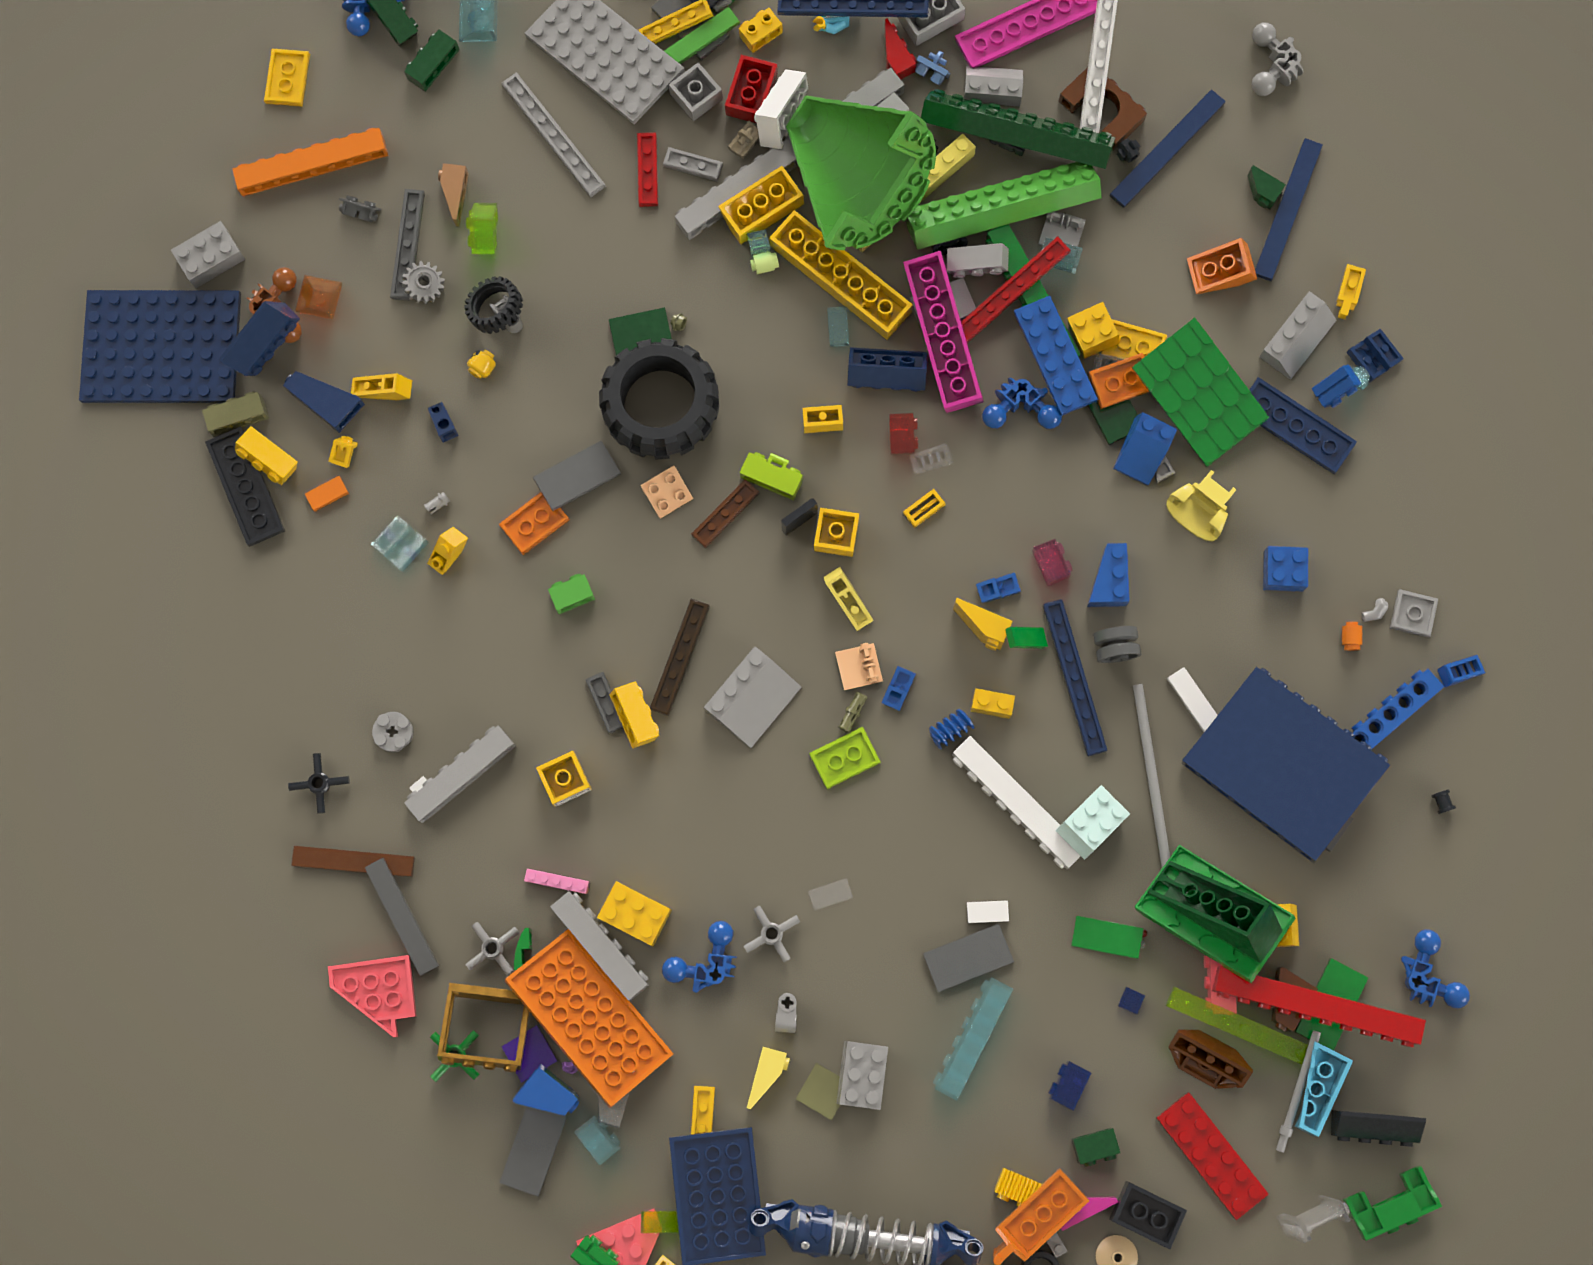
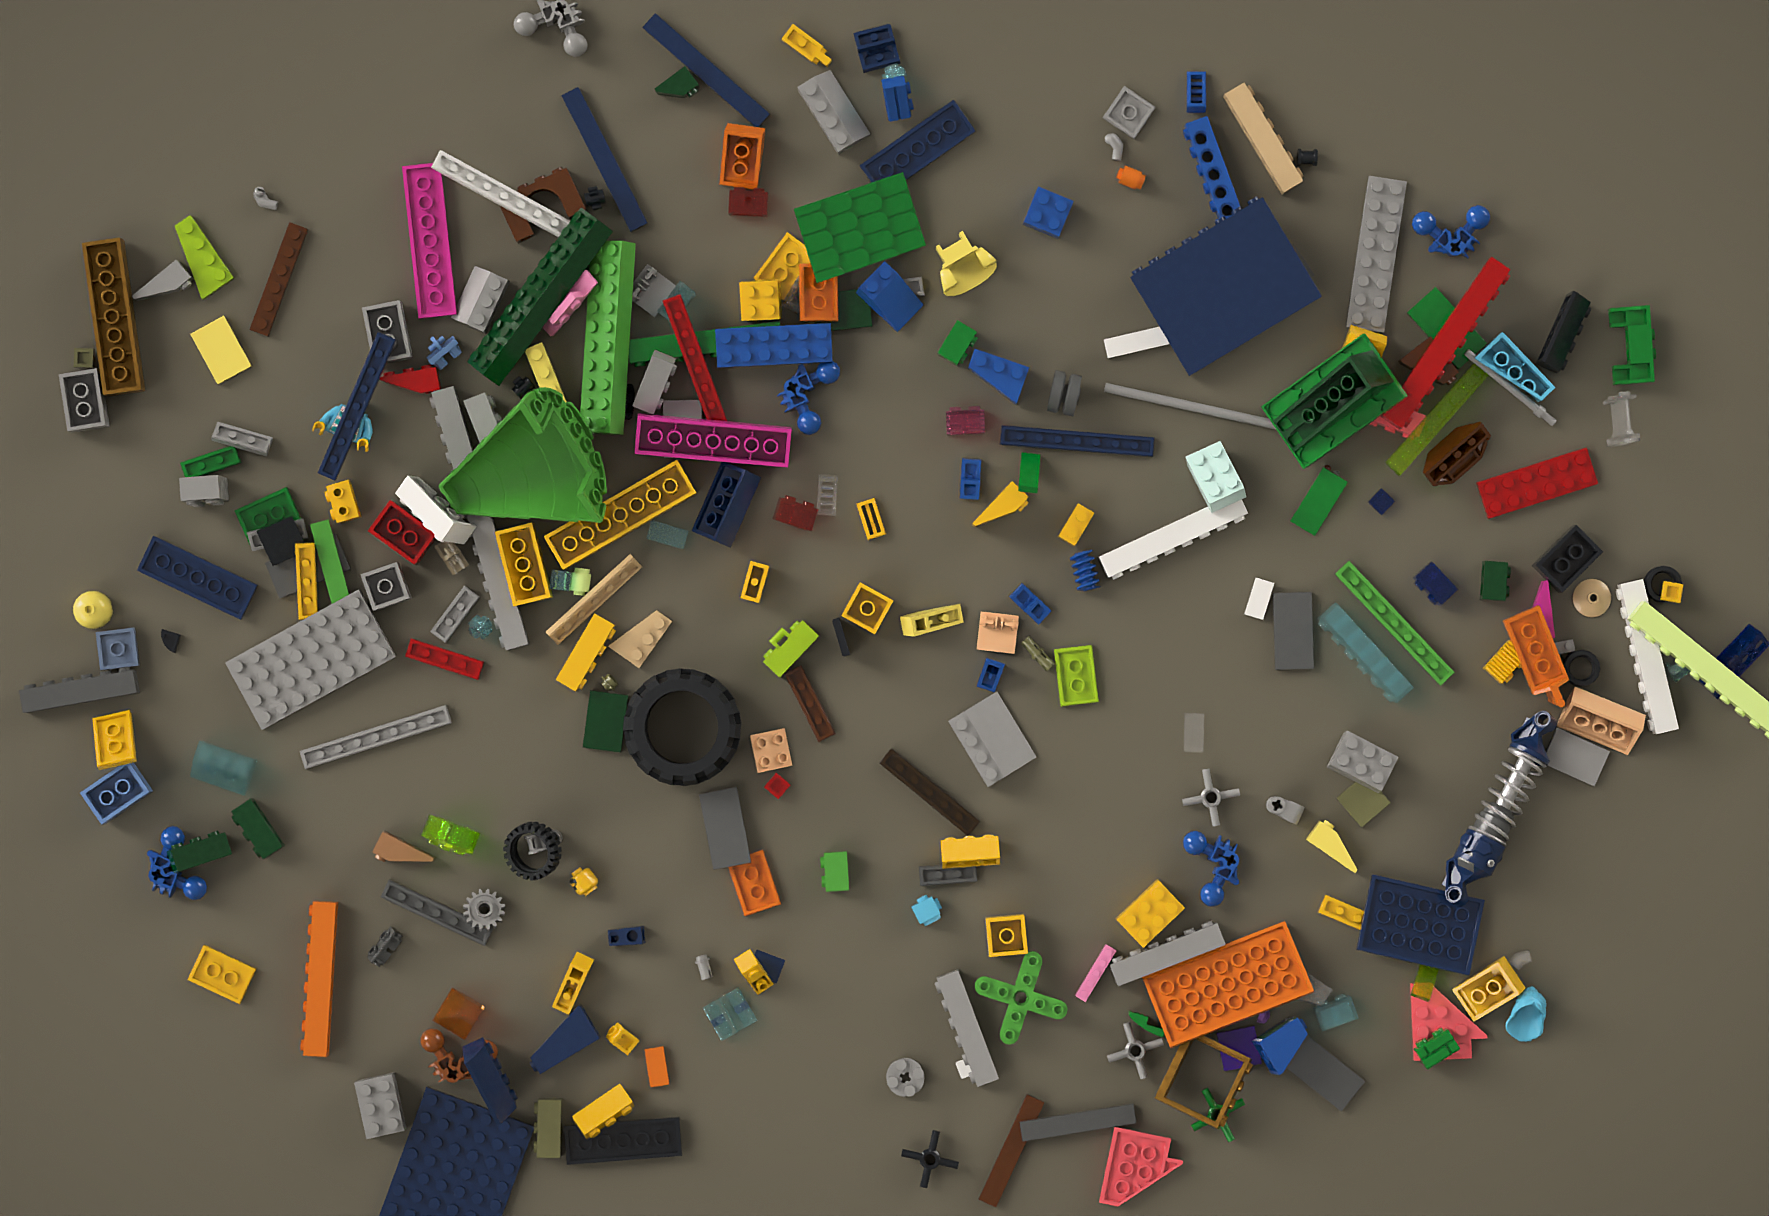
camera: 75 degrees left, 10 degrees up
(461, 566) = (771, 964): none -> dark blue sticker
(492, 814) = (1016, 1010): none -> bright green piece
(563, 693) = (927, 910): none -> medium azure brick
(634, 510) = (777, 785): none -> red plate
(688, 188) = (480, 627): none -> clear light blue gear
(699, 290) = (585, 653): none -> yellow brick
(731, 338) = (642, 638): none -> tan wing
(752, 280) = (594, 599): none -> tan tile
(815, 673) = (990, 675): none -> blue slope
(1014, 1058) = (1394, 623): none -> bright green plate
(1021, 157) = (570, 303): none -> bright pink bracket
(1124, 528) = (957, 343): none -> green brick
(1180, 288) = (748, 202): none -> clear red brick
(1376, 906) = (1376, 253): none -> light grey plate
(1444, 751) = (1263, 139): none -> tan brick

